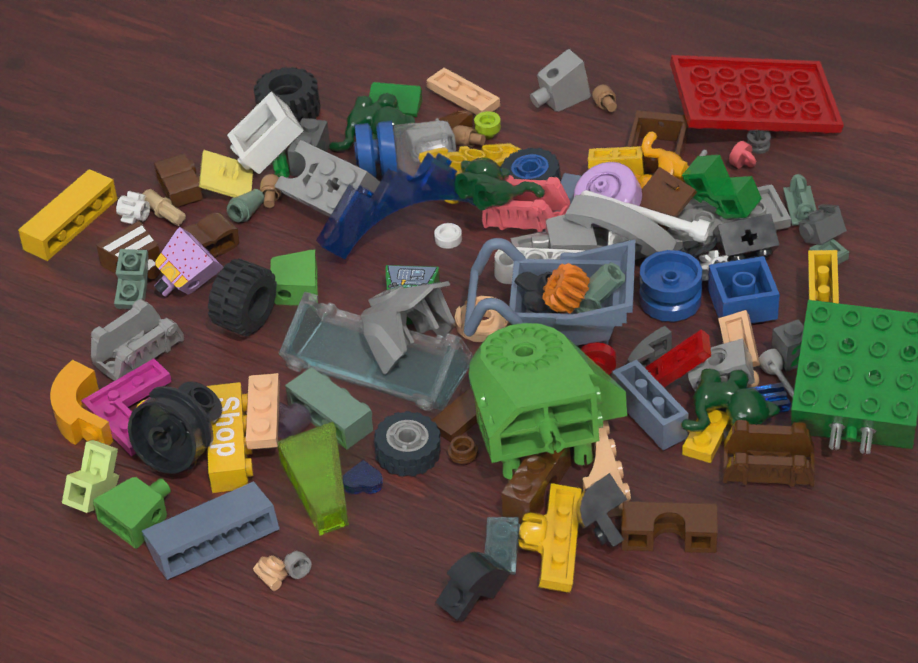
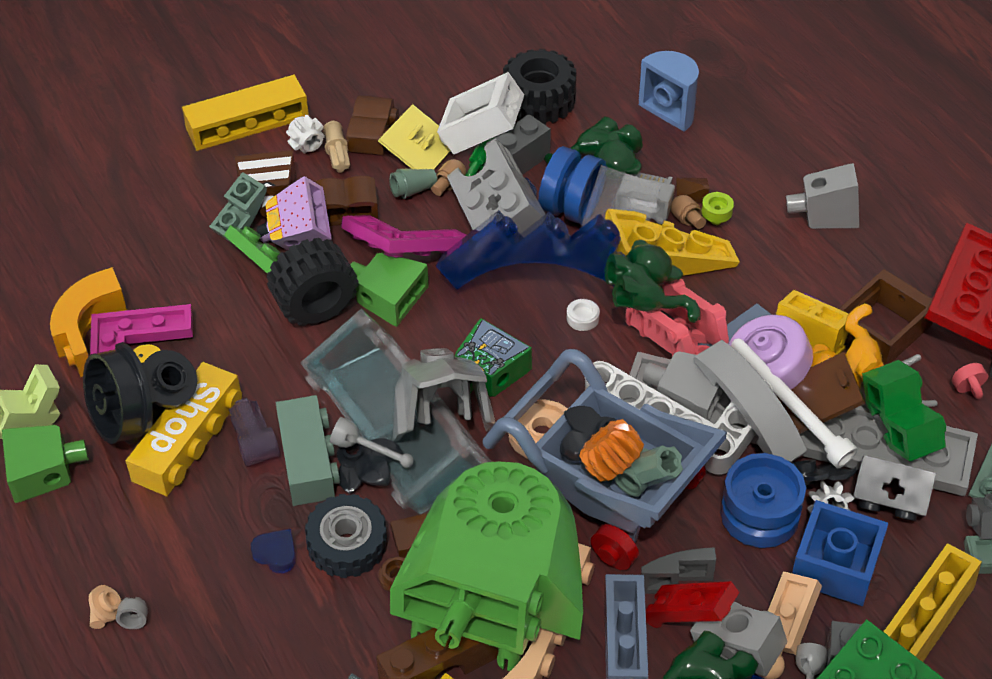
camera: 30 degrees right, 5 degrees up
(130, 343) = (188, 274): light grey piece -> none
(181, 300) = (248, 242): none -> bright green plate
(210, 530) = (84, 524): sand blue brick -> none
(263, 411) = (229, 420): light nougat plate -> none
(280, 244) = (397, 242): none -> dark pink plate
(316, 475) = (234, 512): clear neon green slope -> none
(357, 379) = (347, 434): none -> light grey hinge
(382, 393) = (365, 465): none -> black plate
(389, 56) = (669, 87): none -> medium blue brick
(408, 96) = (657, 138): green slope -> none
(462, 92) = (722, 160): light nougat plate -> none
(532, 164) = (722, 281): wheel -> none
(604, 98) = (869, 236): medium nougat cylinder -> none

